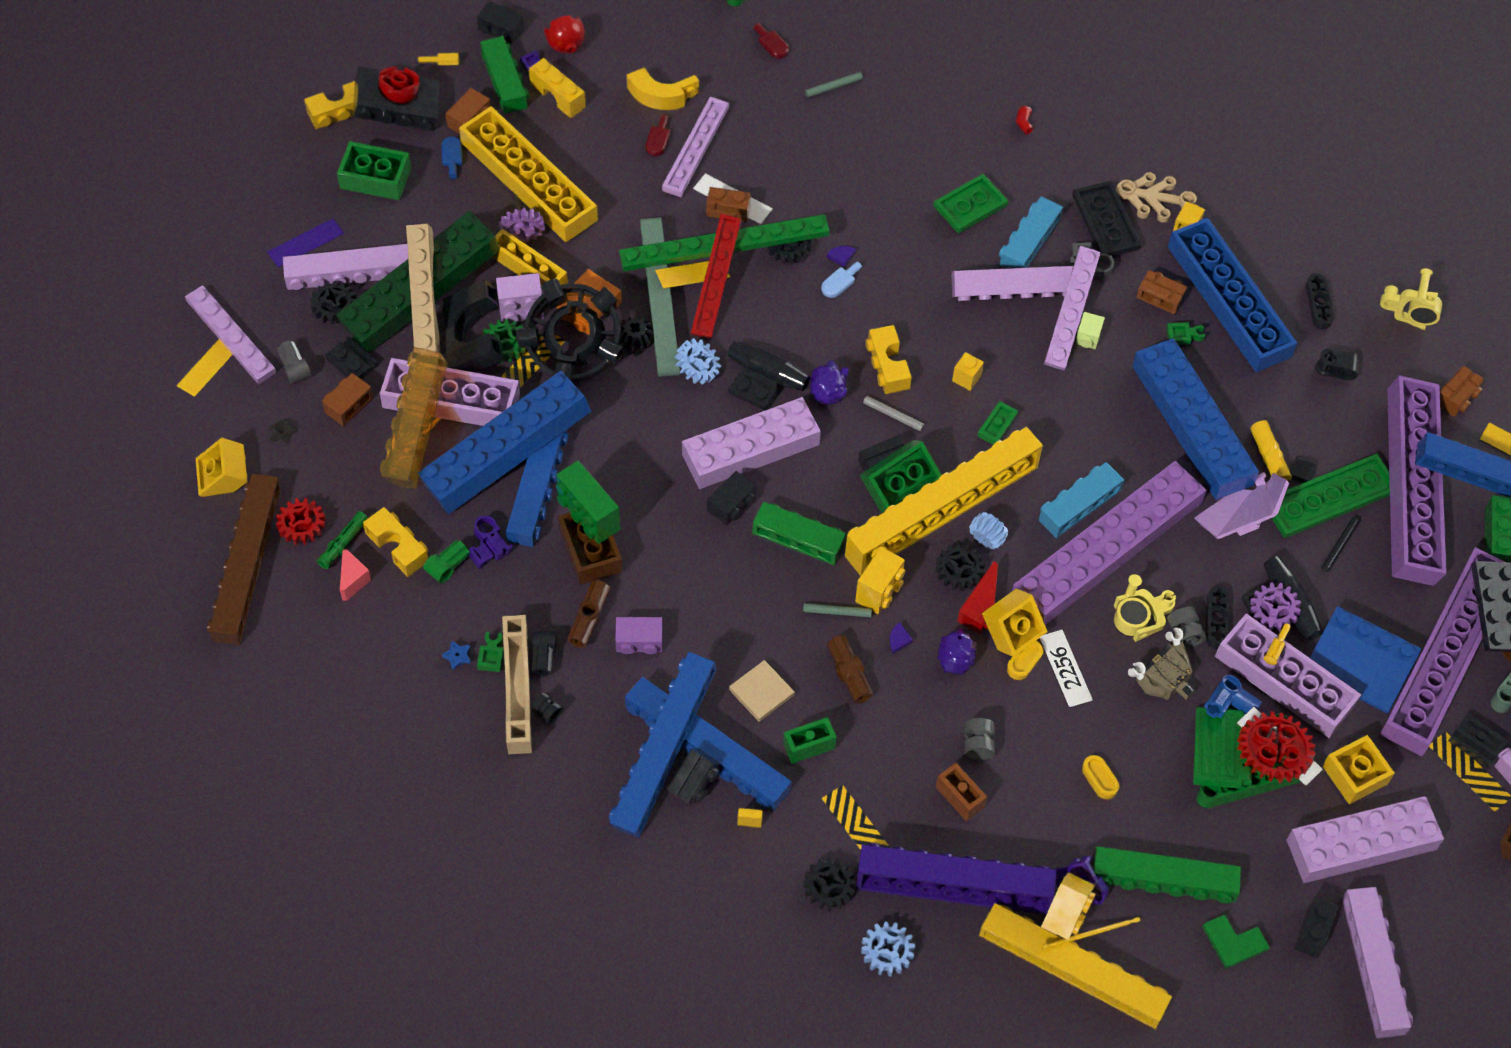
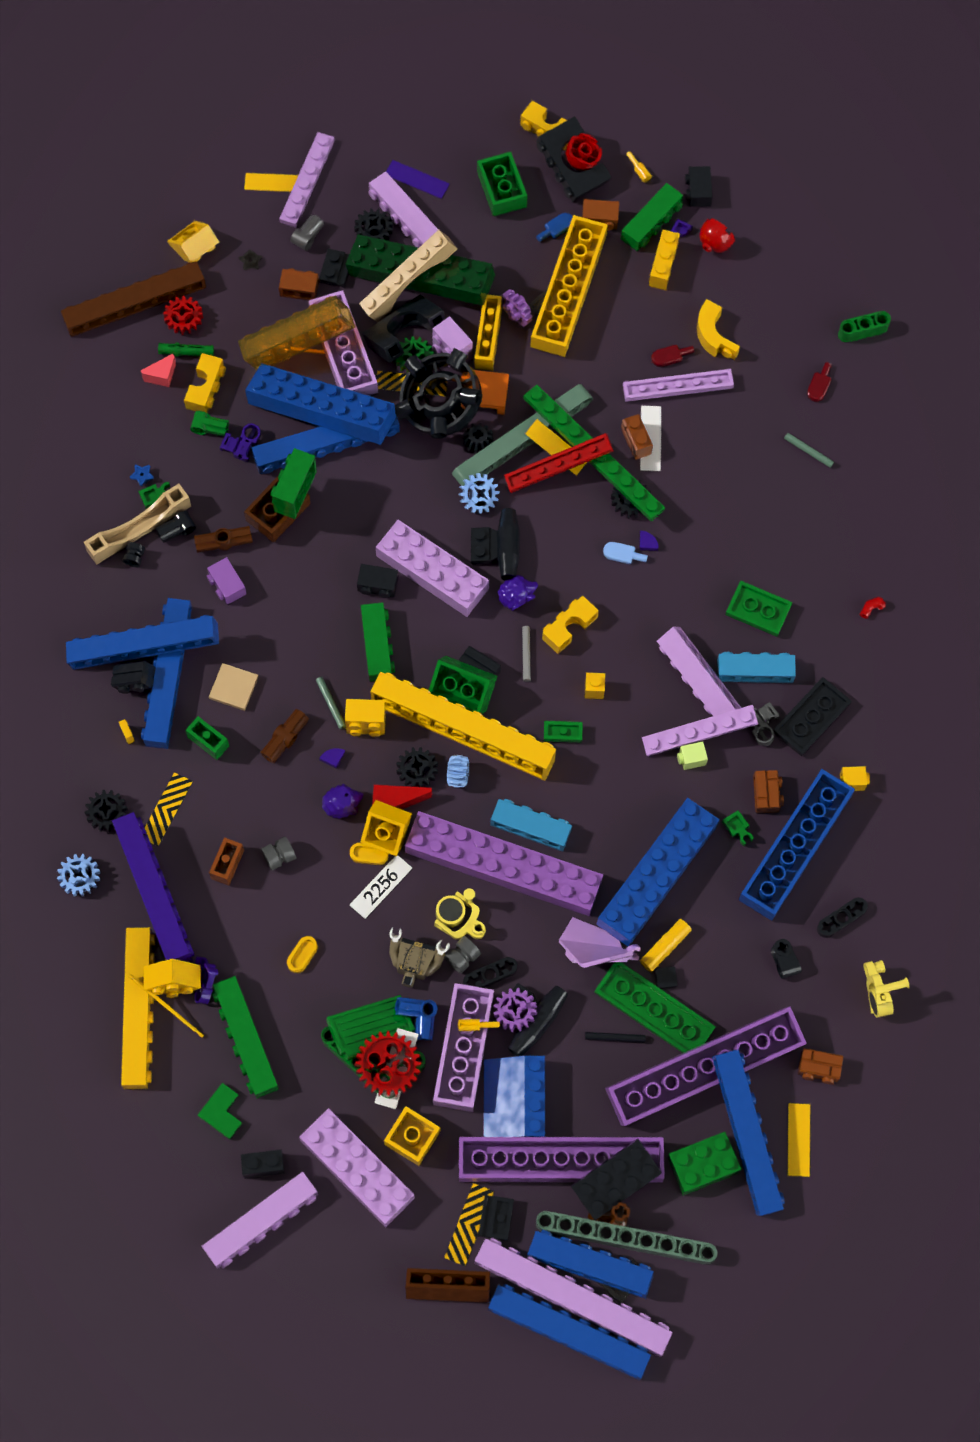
camera: 60 degrees right, 10 degrees up
(1153, 195) = (862, 739): tan plant -> none

